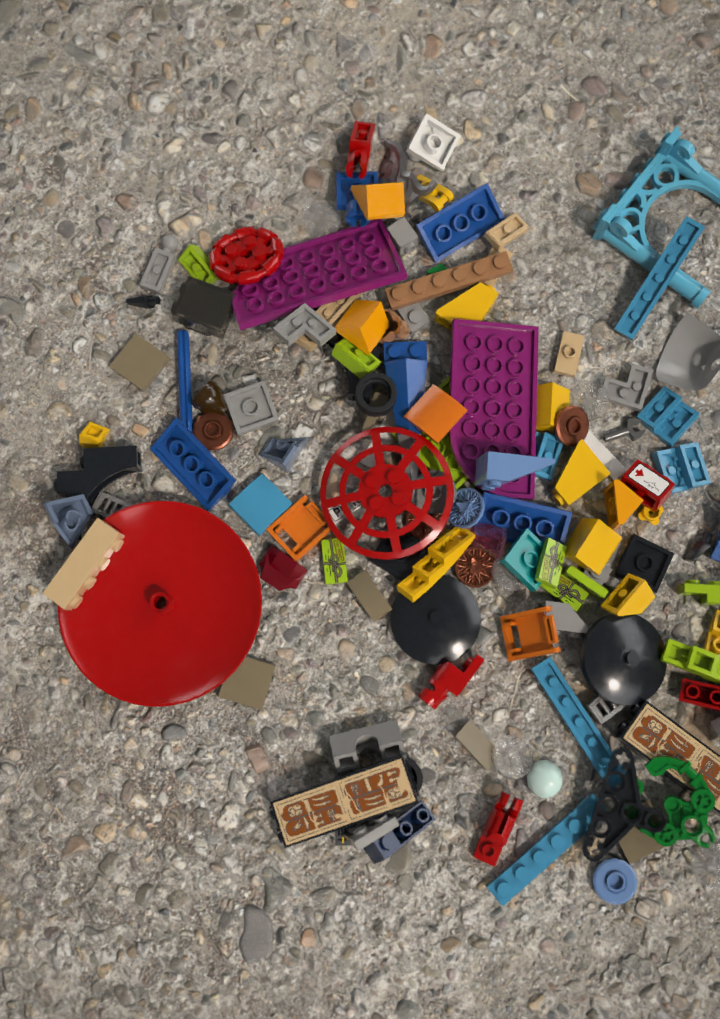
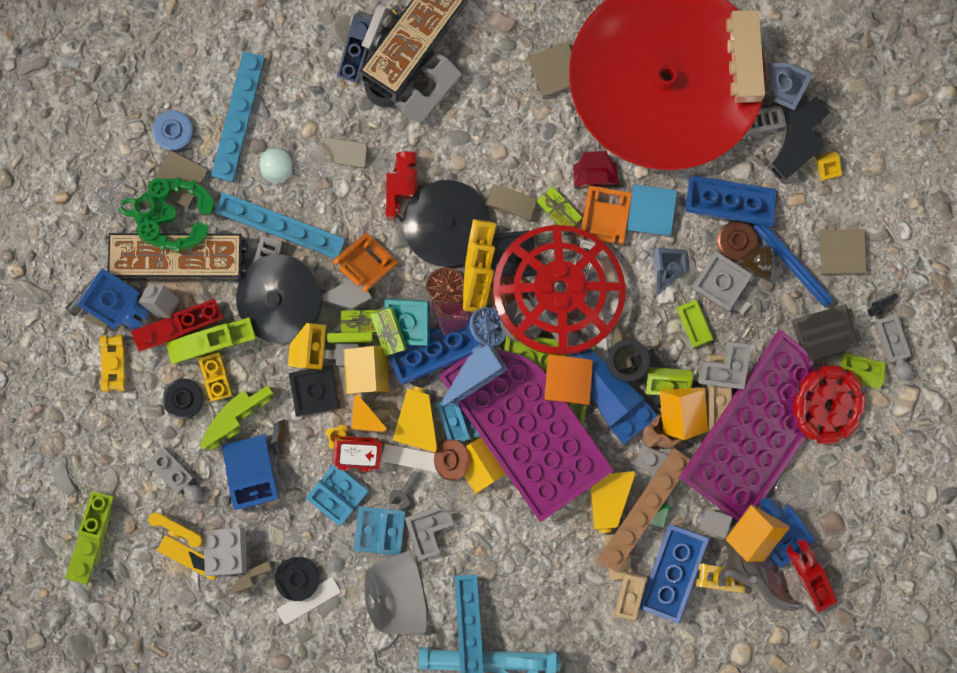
camera: 140 degrees right, 5 degrees up
(298, 393) = (694, 323): none -> lime tile
(432, 143) = (754, 629): white slope -> none
(497, 829) = (285, 101): red plate -> none
(568, 354) = (498, 525): tan plate -> none
(625, 795) = (209, 191): black beam -> none

